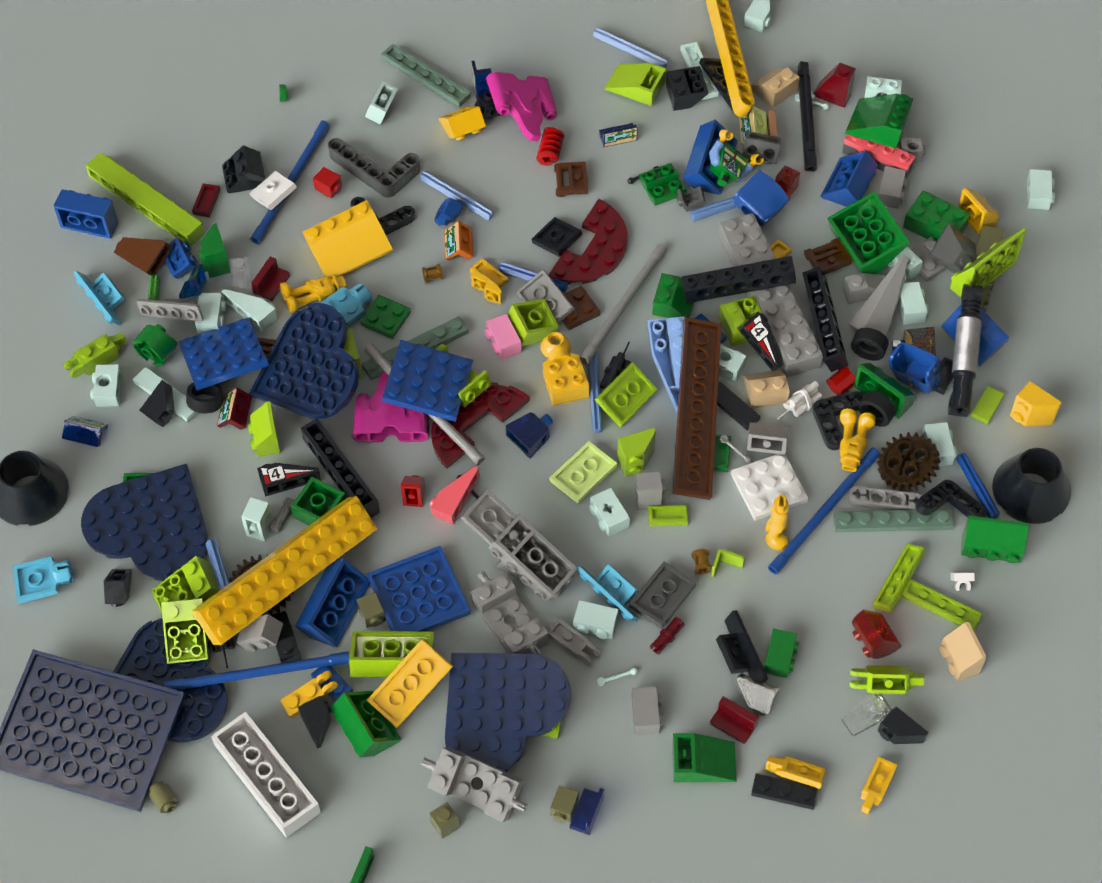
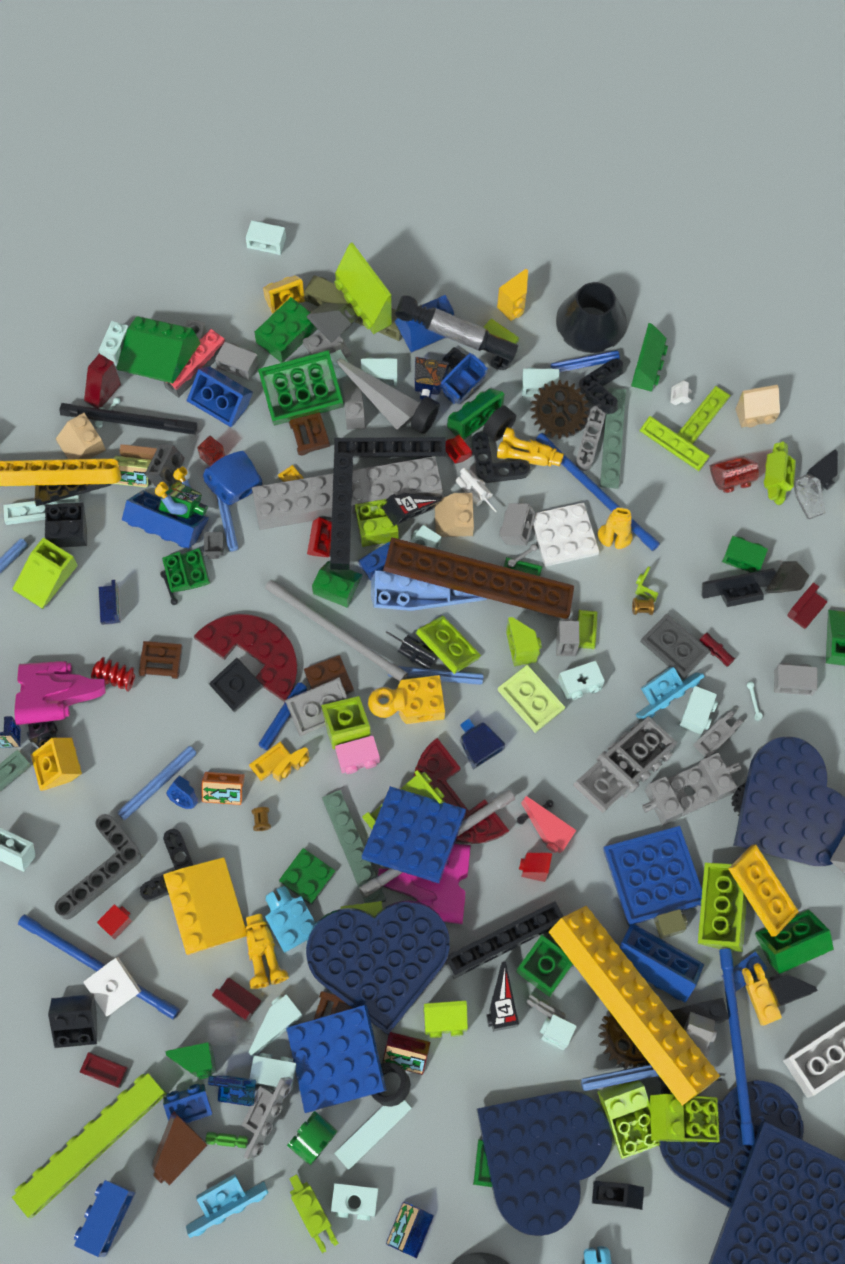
camera: 85 degrees left, 10 degrees up
(160, 404) = (396, 1136): black slope -> none
(736, 407) = (477, 544): black tile -> none

